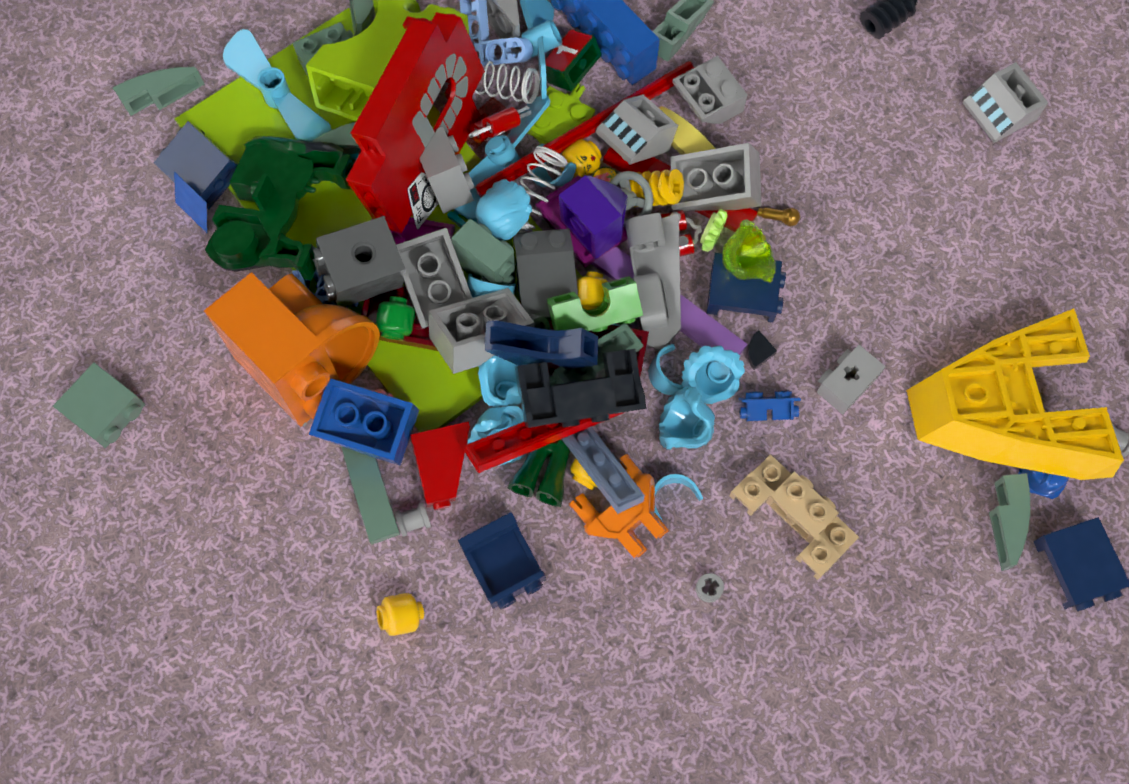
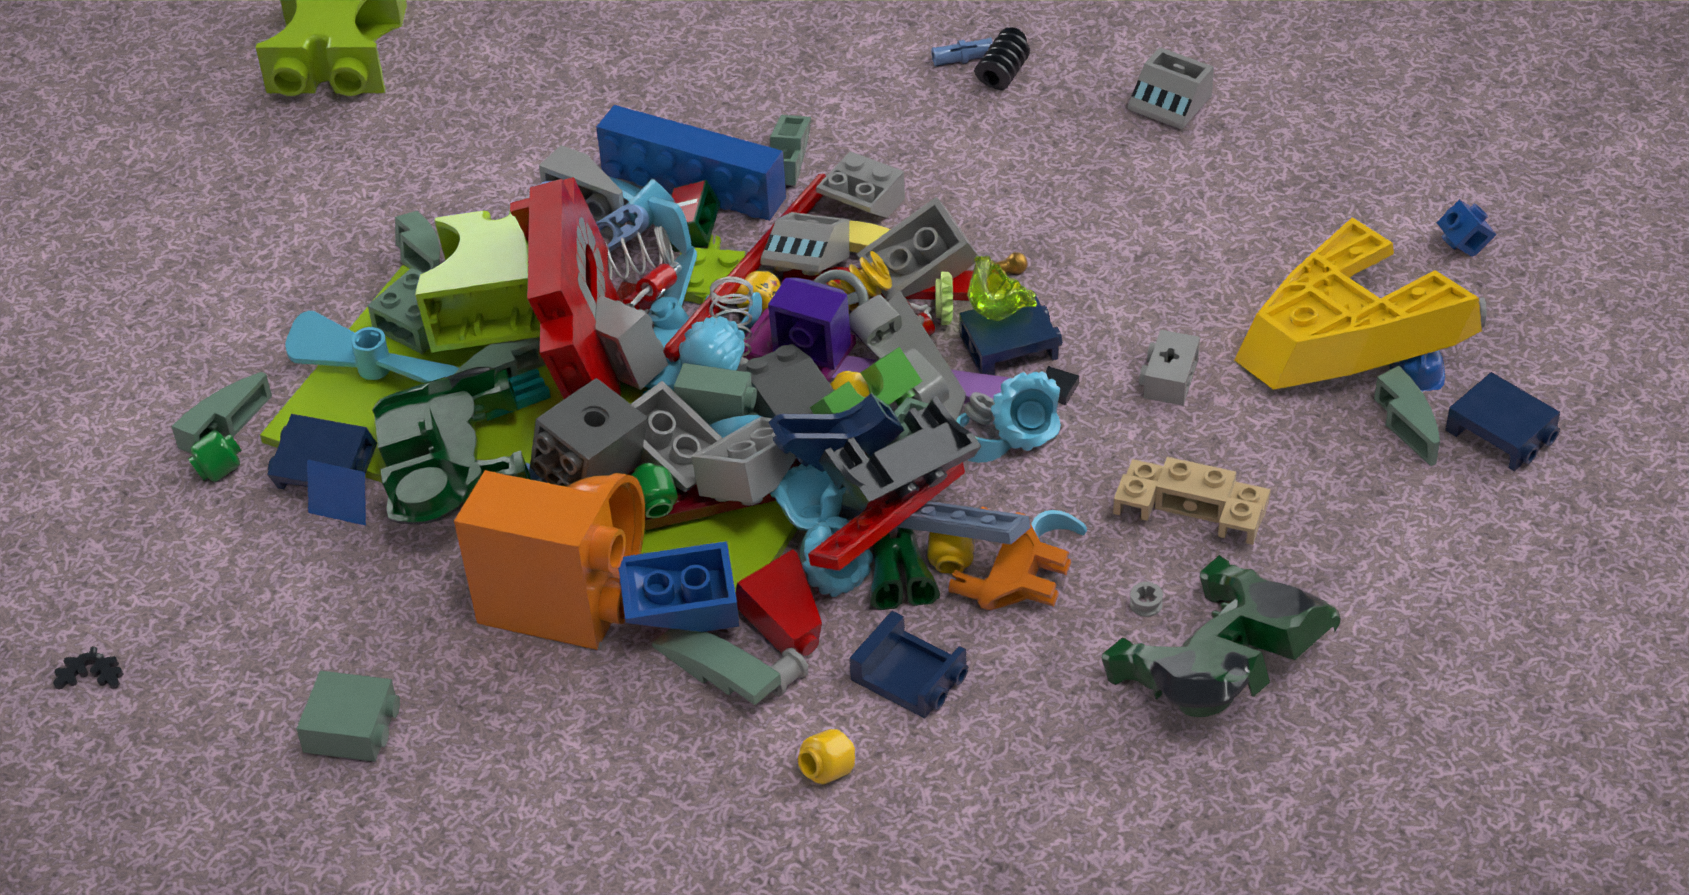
camera: 25 degrees left, 25 degrees down
(133, 125) = (215, 456): none -> green head
(421, 199) = (610, 375): sticker -> none
(684, 345) = (979, 408): none -> light grey bush
(686, 420) = (1025, 462): medium azure hair -> none
(704, 697) = (1217, 657): none -> dark green animal
(757, 406) = (1090, 426): blue hinge -> none

